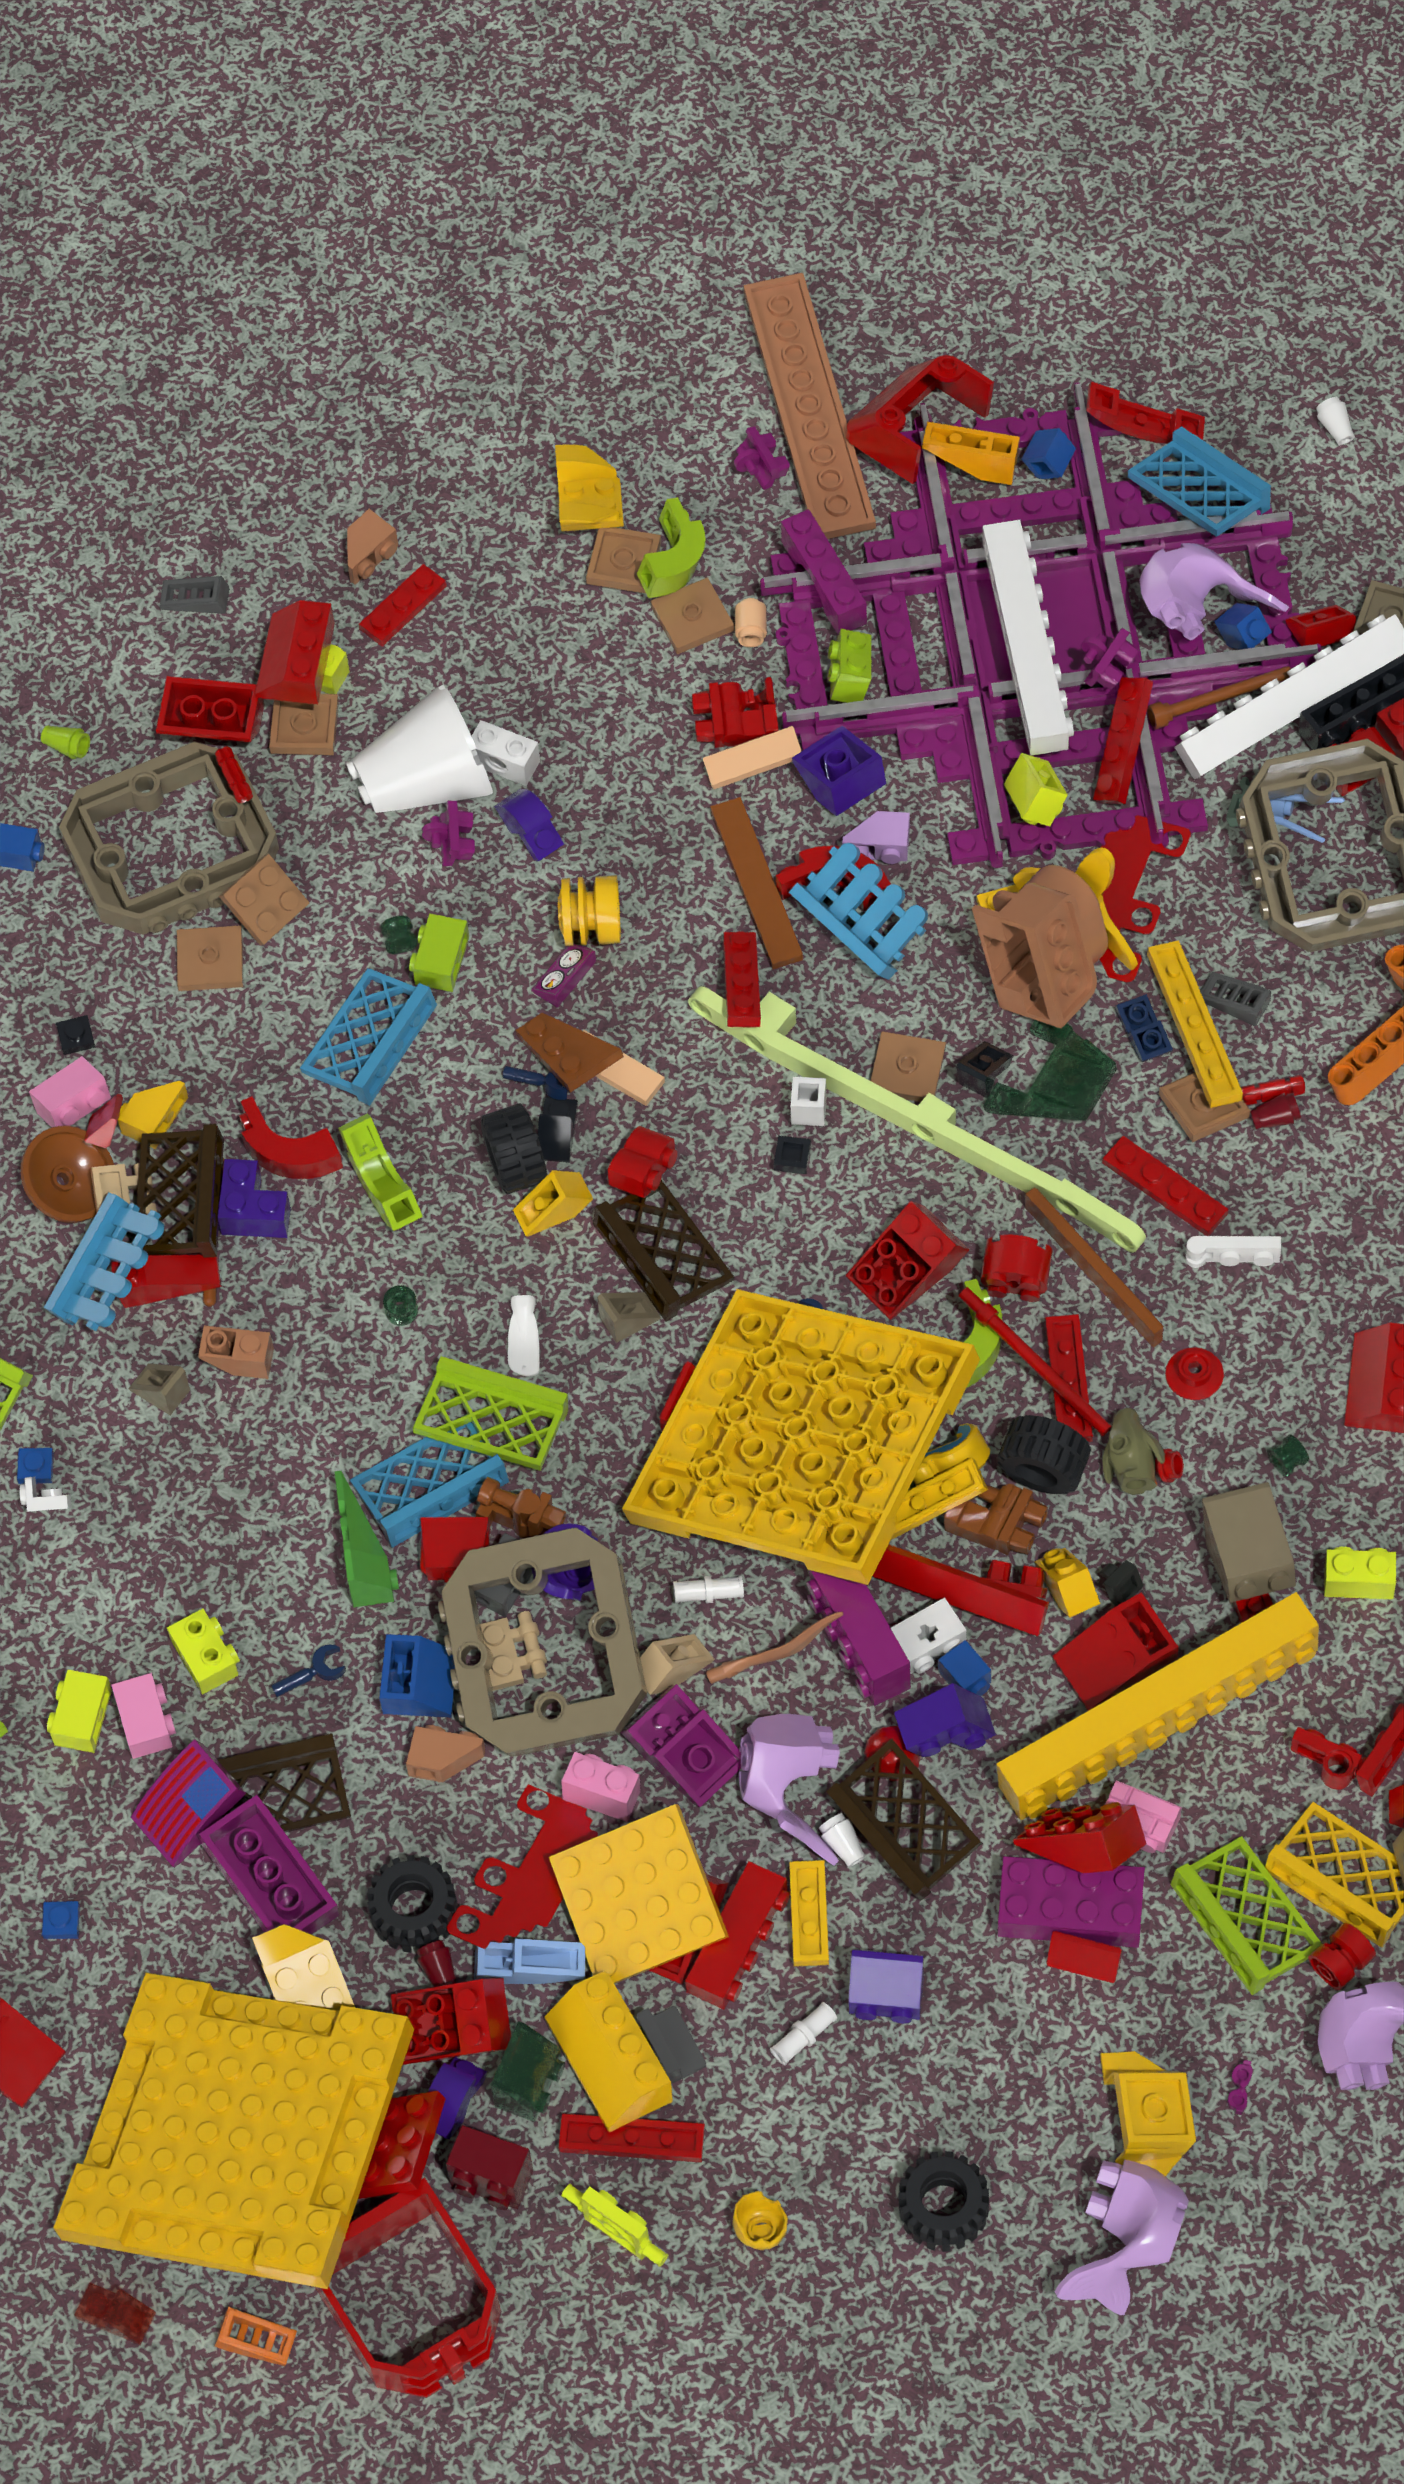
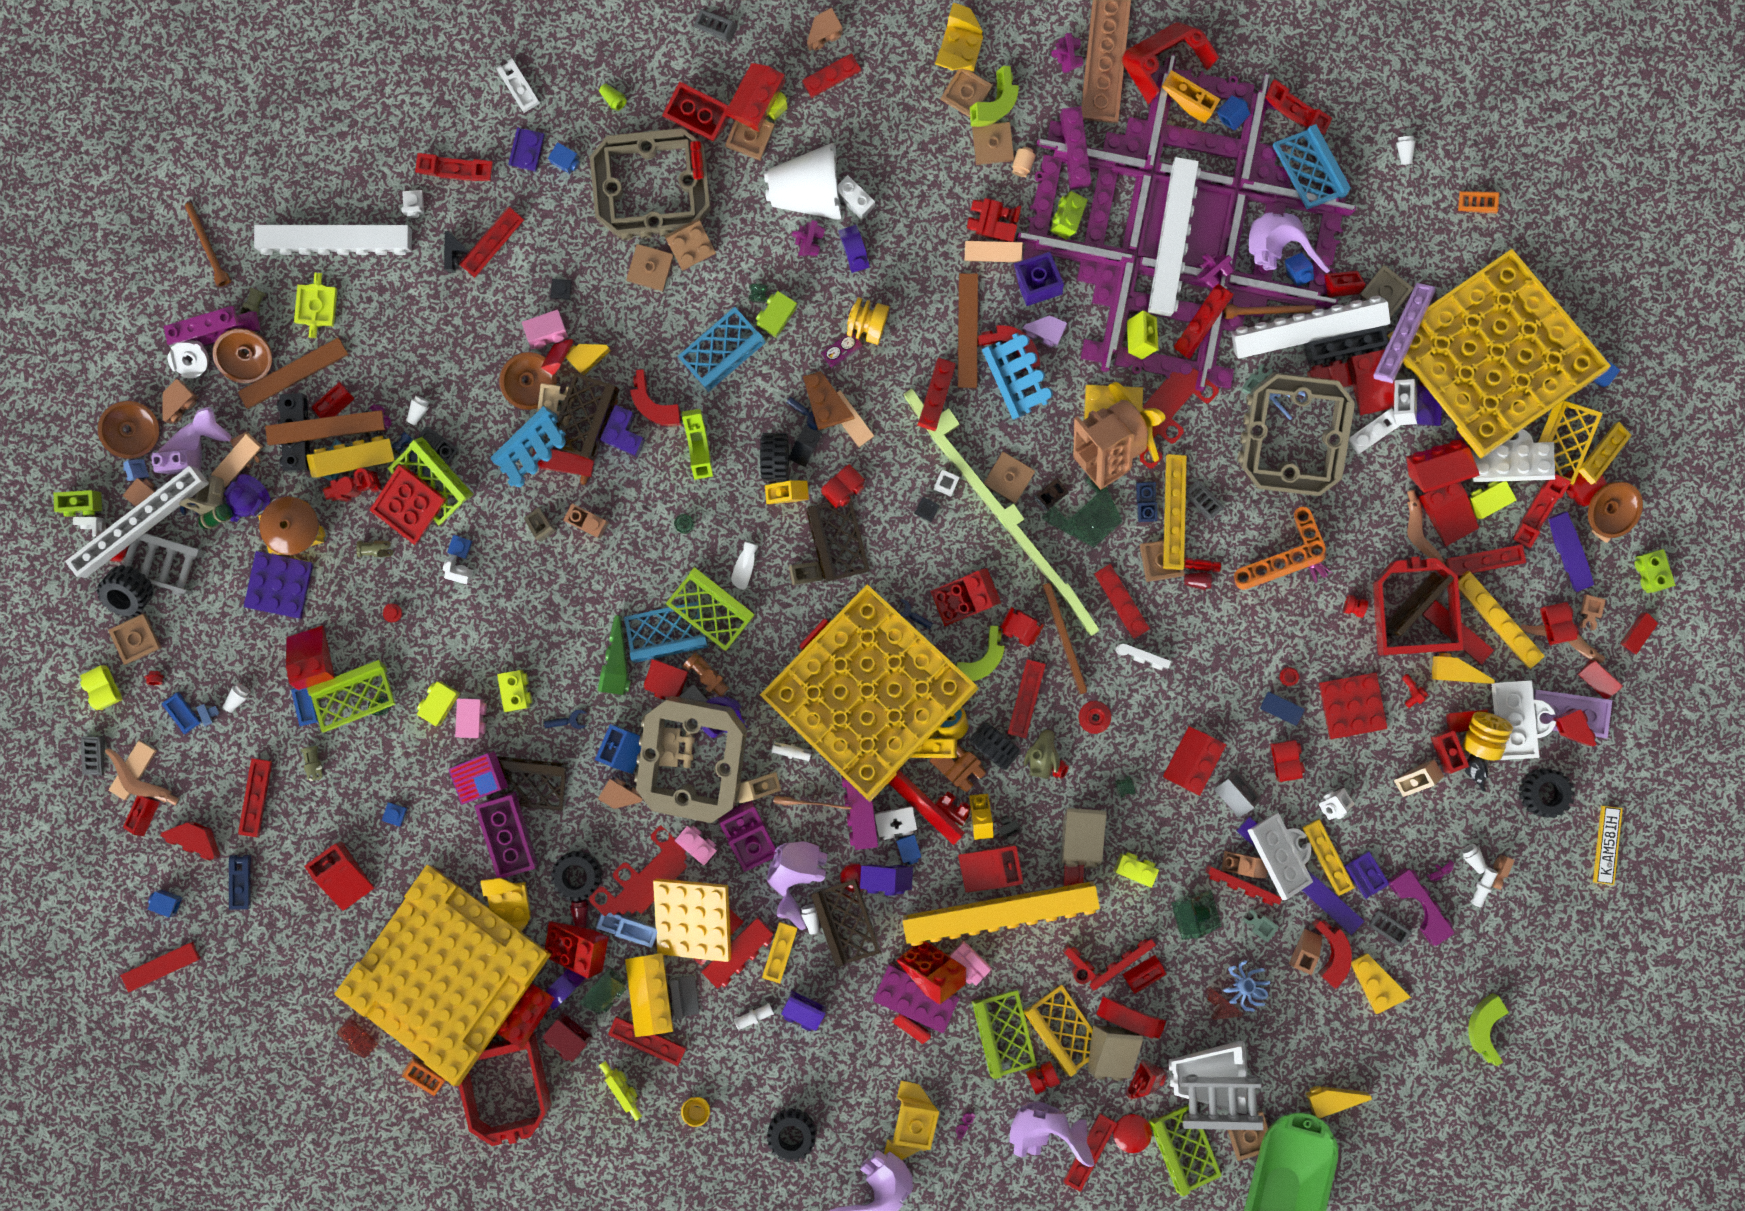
camera: 15 degrees right, 25 degrees up
(988, 1316) = (995, 653): red bar -> none

